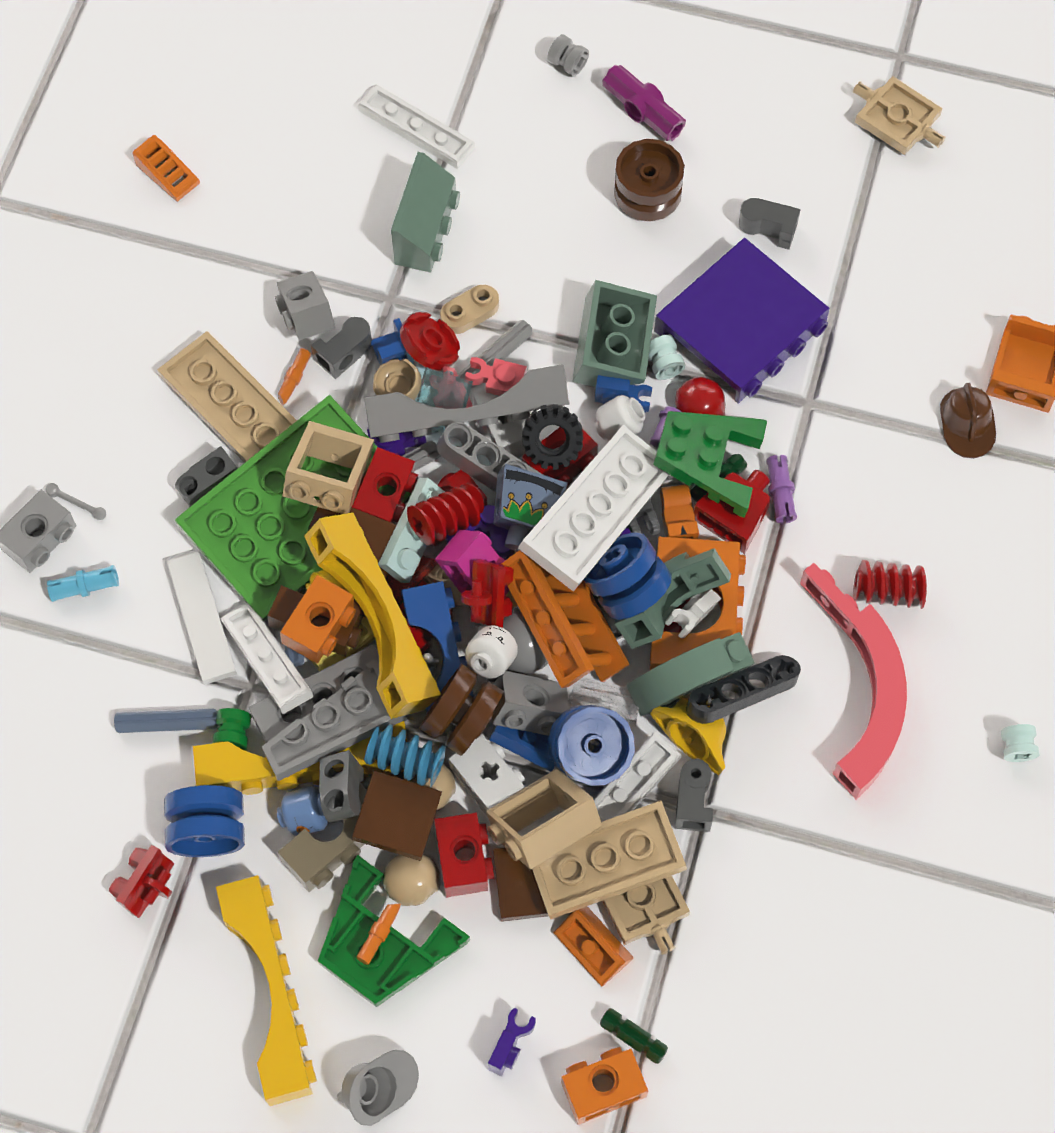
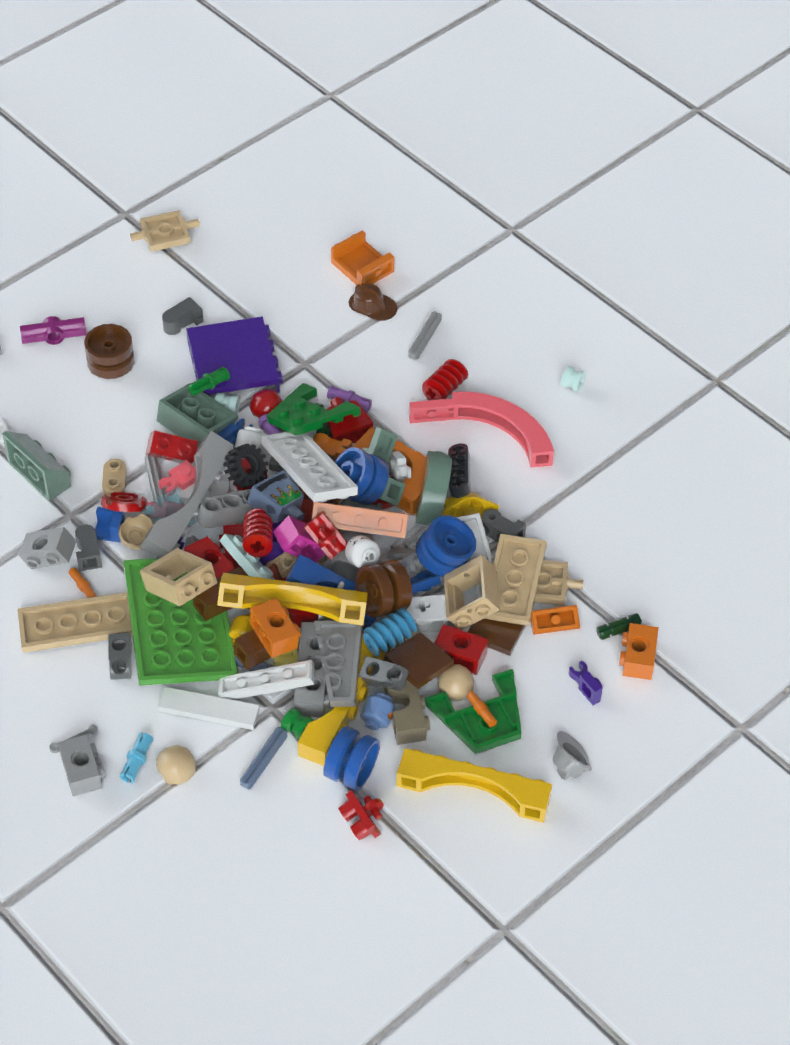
camera: 60 degrees left, 15 degrees down
(100, 631) = (176, 764): none -> tan hair
(540, 337) = (171, 447): none -> red brick
(669, 314) = (209, 381): none -> green axle
(959, 514) = (424, 335): none -> light grey axle

